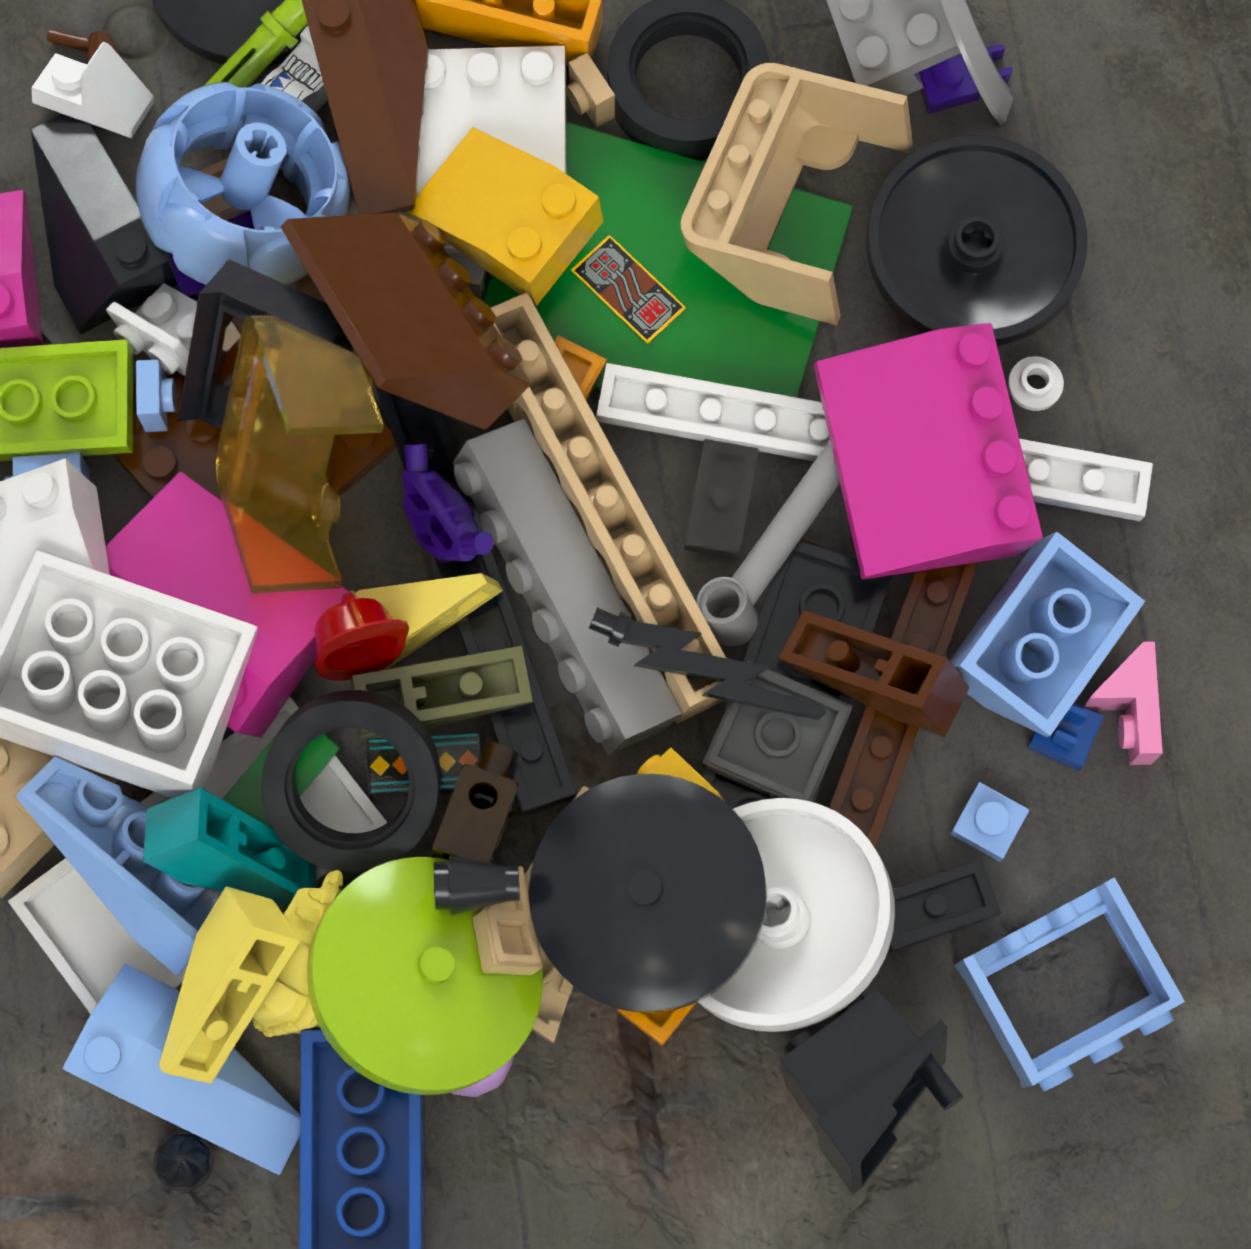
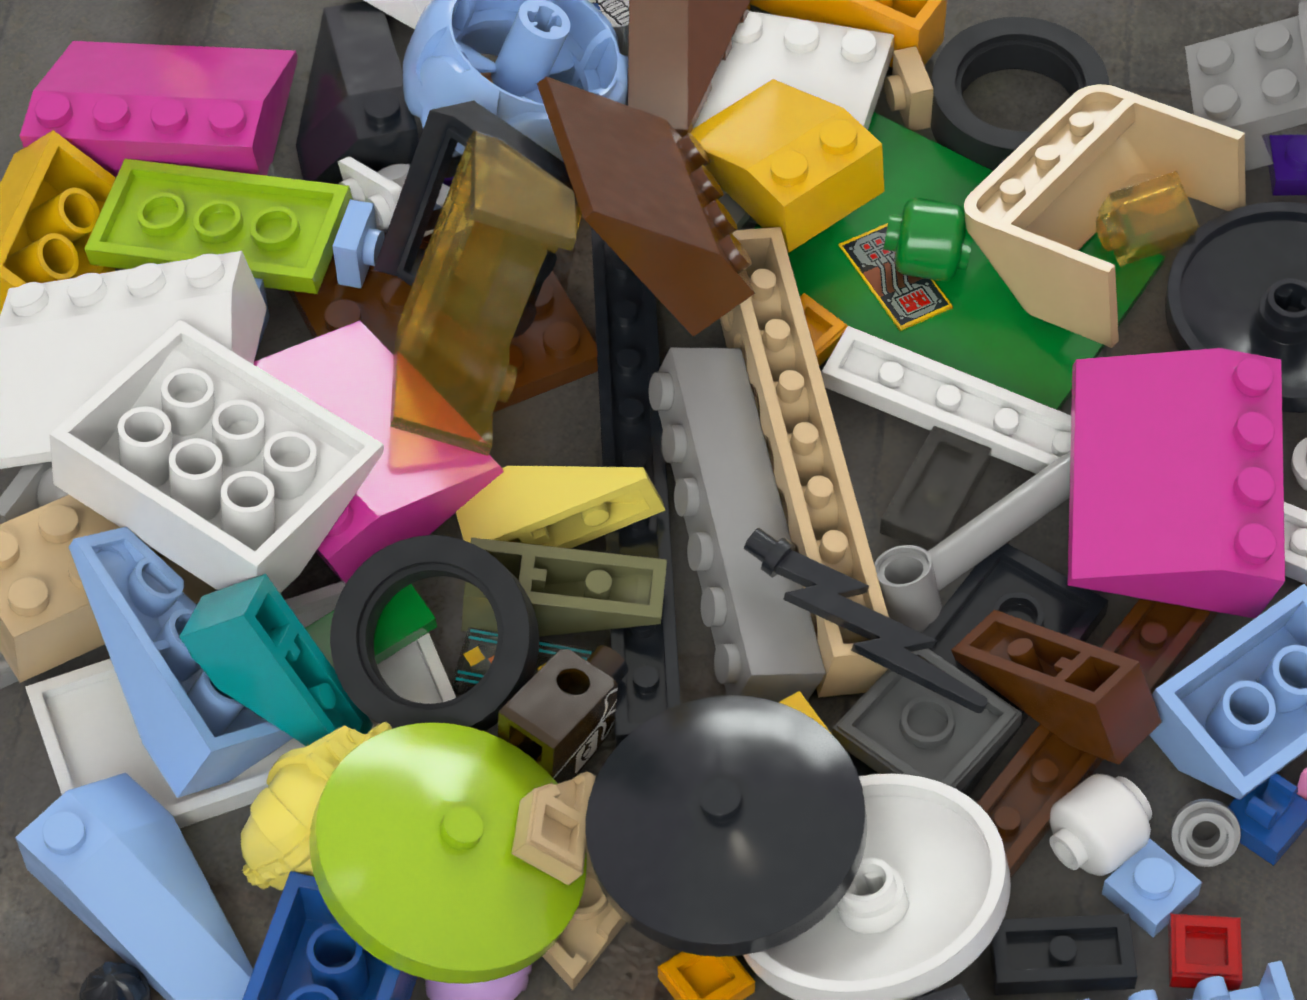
camera: 20 degrees right, 20 degrees down
(225, 982) = (221, 794): light yellow slope -> none
(357, 638) = (489, 496): red piece -> none
(439, 513) = (617, 414): dark purple piece -> none
(473, 884) = (529, 757): black cone -> none
(652, 254) = (929, 239): none -> green head
(833, 185) = (1146, 219): none -> clear yellow brick
(938, 784) = (1100, 824): none -> white head
(1025, 776) = (1211, 851): none -> light grey plate
(1044, 867) = (1204, 949): none -> red tile

